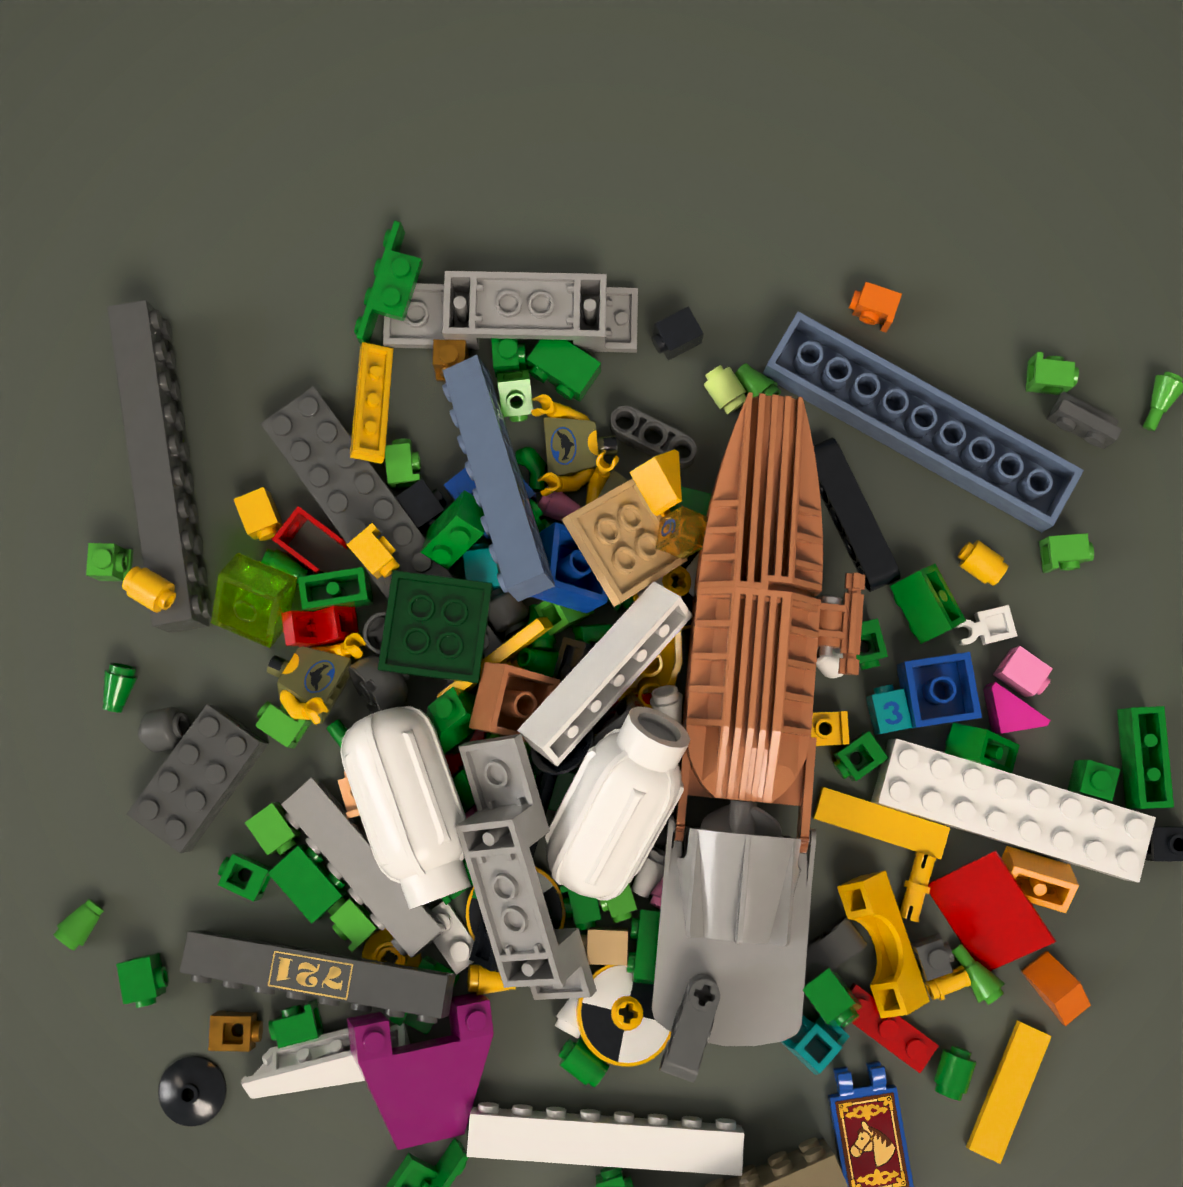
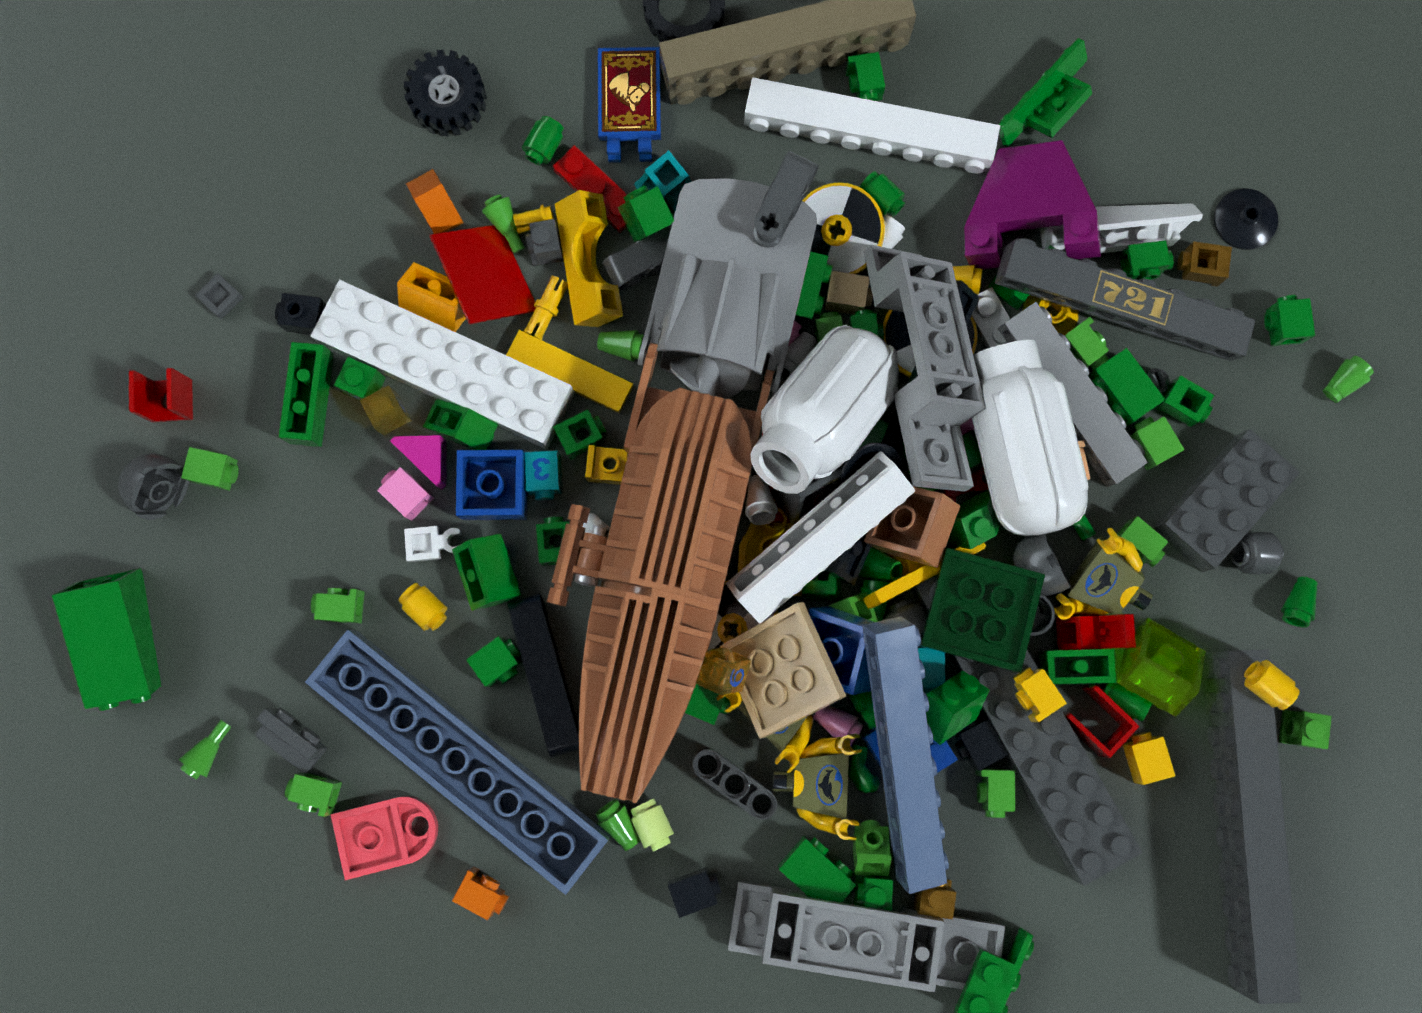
camera: 170 degrees left, 0 degrees up
(269, 900) = (1163, 377): none -> dark grey hinge
(371, 403) = (1023, 860): yellow tile -> none
(660, 481) = (737, 728): yellow slope -> none
(834, 858) = (621, 343): none -> bright green cone
(901, 519) = (496, 661): none -> green brick
(977, 346) = (382, 835): none -> coral tile
(1008, 1091) = (496, 120): yellow tile -> none
(1061, 753) = (385, 410): none -> clear yellow brick
(1086, 1119) = (438, 79): none -> black wheel

